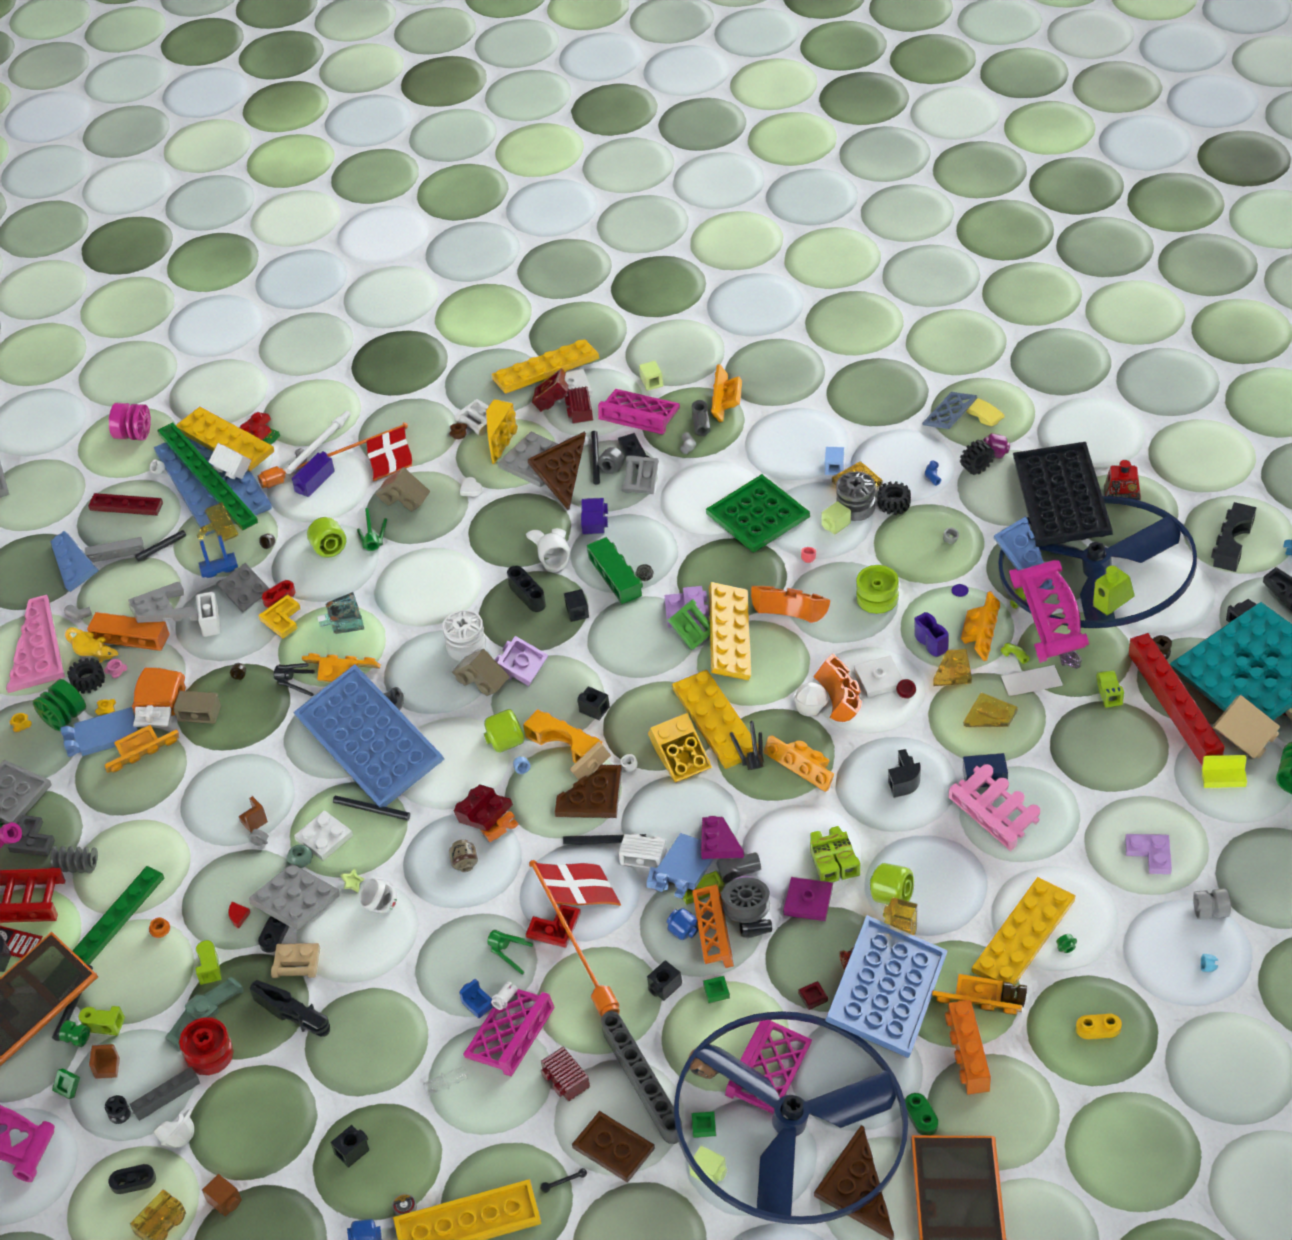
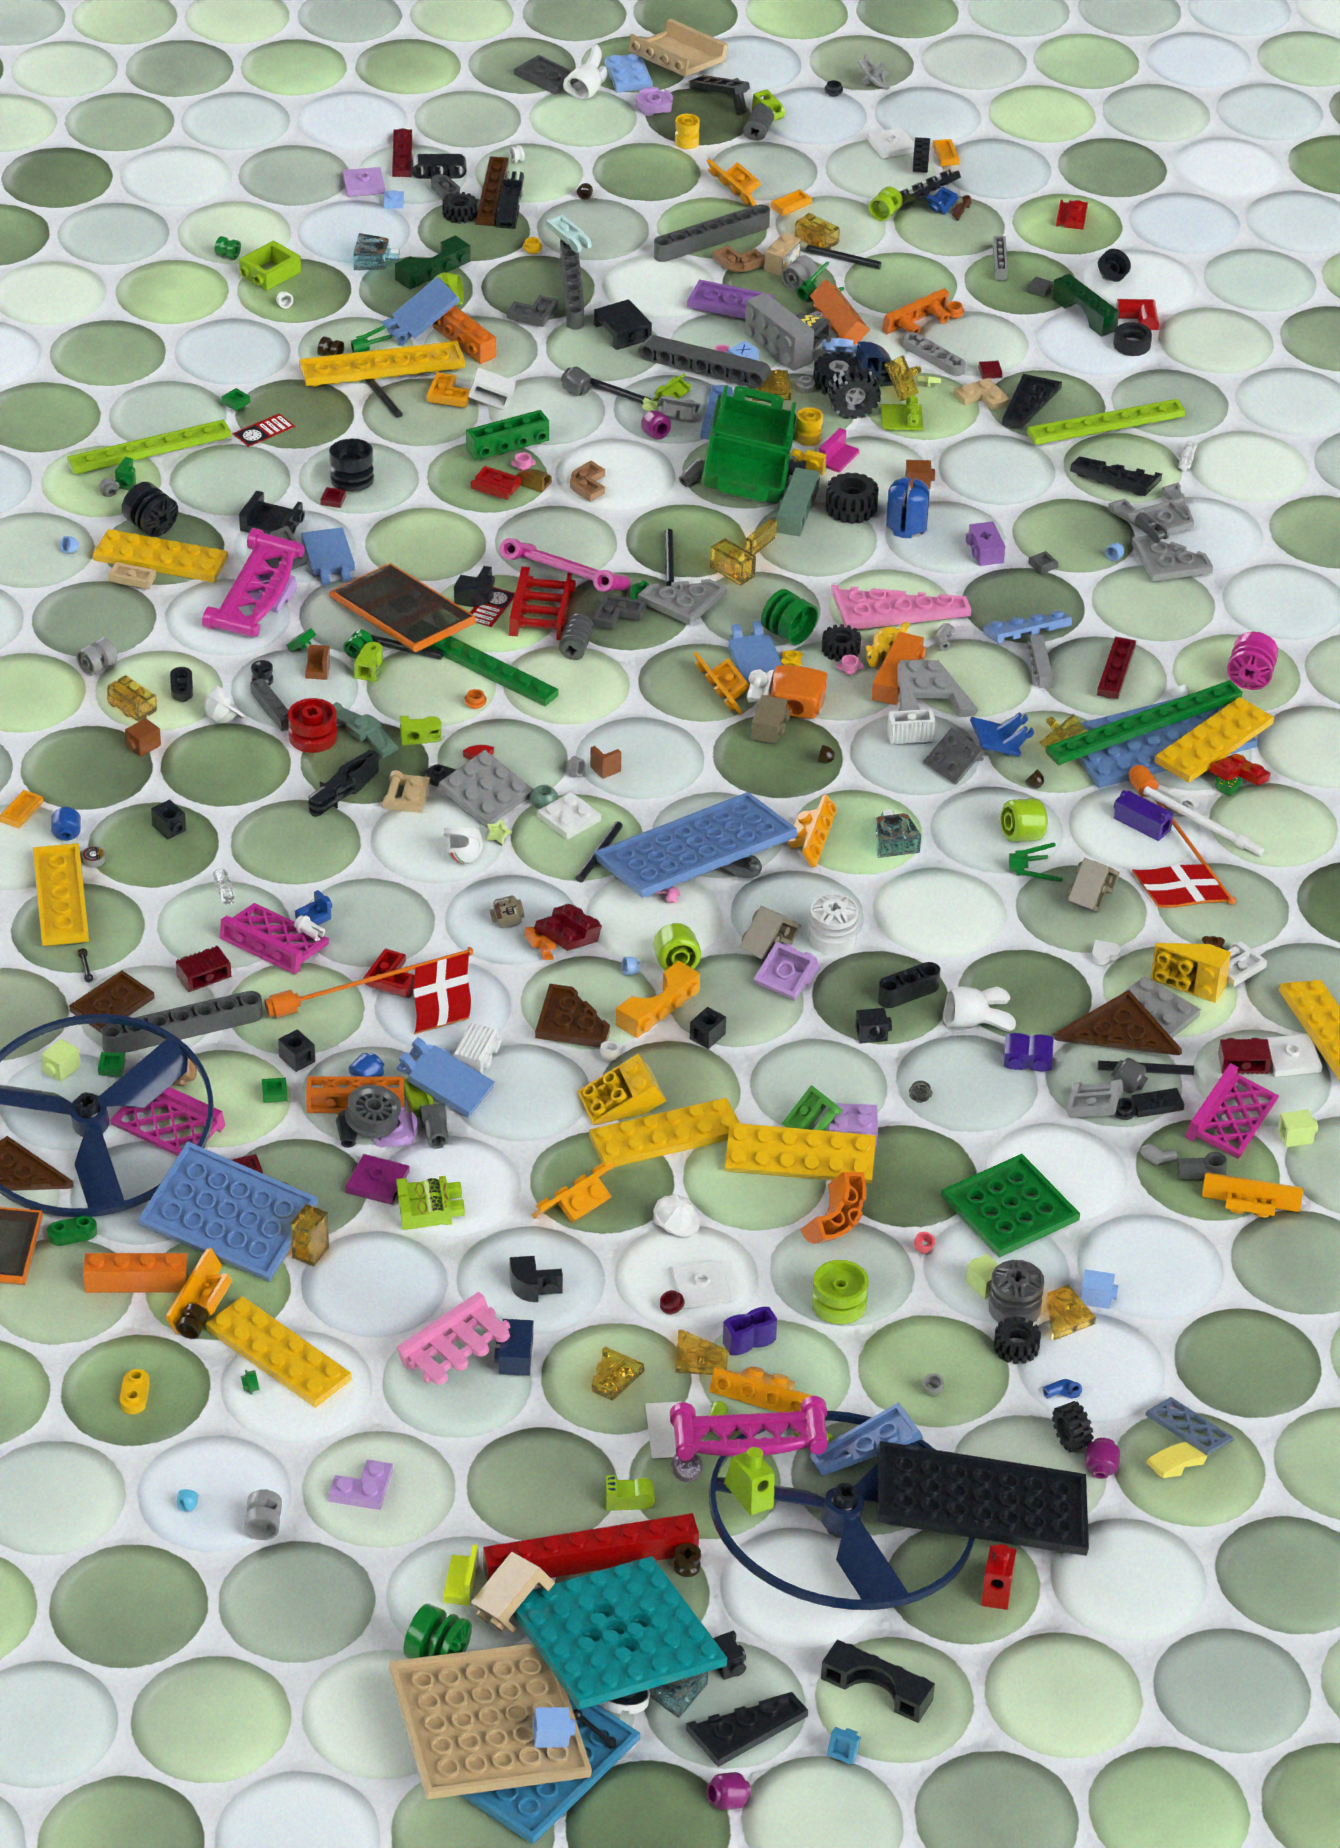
camera: 90 degrees right, 5 degrees down
(162, 544) = (1044, 697): black bar -> none
(229, 461) = (1161, 736): white brick -> none
(278, 592) = (944, 788): red beam -> none
(278, 616) = (904, 783): yellow plate -> none
(285, 673) = (810, 789): black plant -> none
(500, 940) = (384, 934): green plant -> none
(550, 390) = (1264, 1023): dark red plate -> none
(590, 761) = (611, 1011): tan plate -> none
(594, 839) = (507, 1026): black bar -> none
(614, 570) = (926, 1062): green brick -> none
(718, 840) = (467, 1103): magenta wing -> none
(754, 759) = (586, 1150): black plant -> none
(841, 688) = (679, 1244): orange brick -> none
(890, 882) = (367, 1239): lime head -> none
(960, 590) = (839, 1386): dark purple sticker -> none

